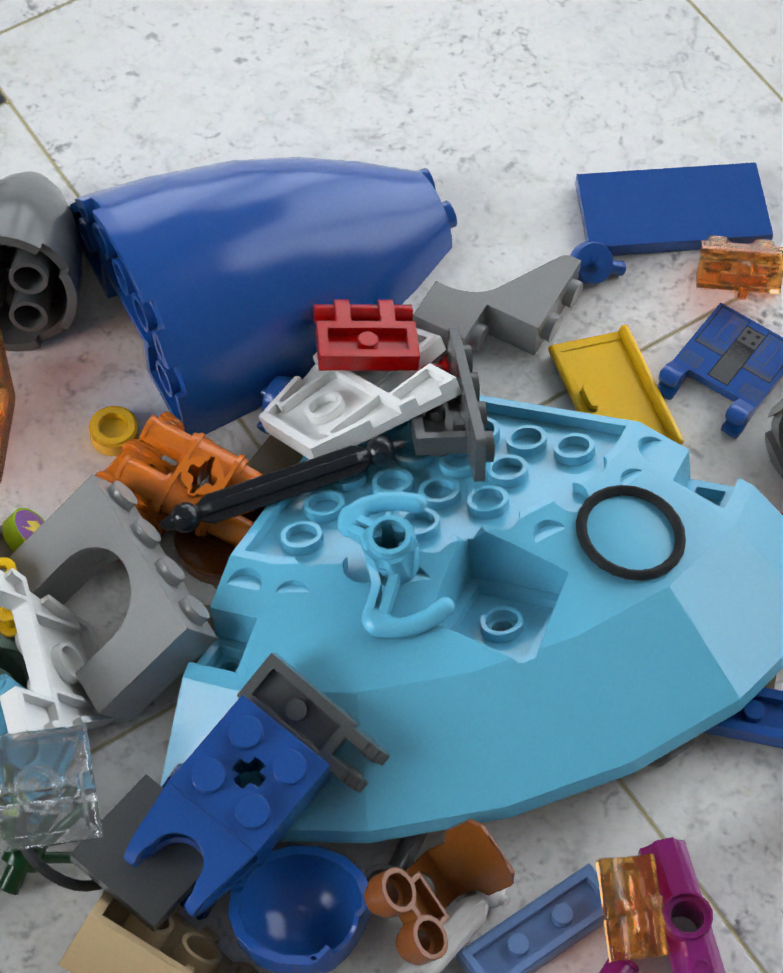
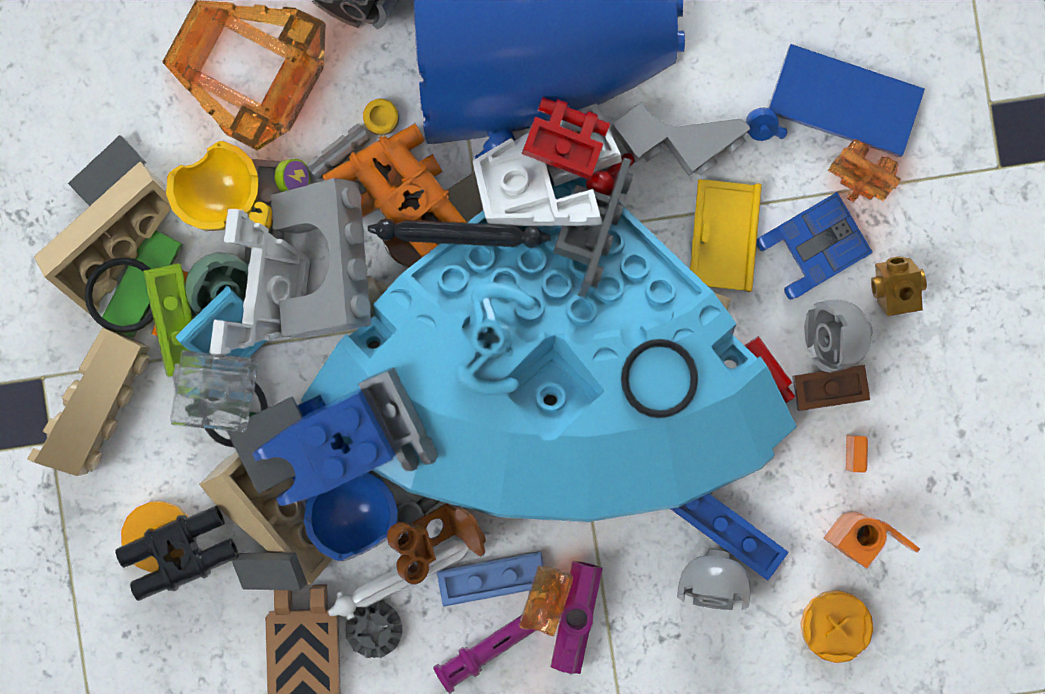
camera: 25 degrees right, 30 degrees up
(92, 461) = (338, 151): none -> light grey axle

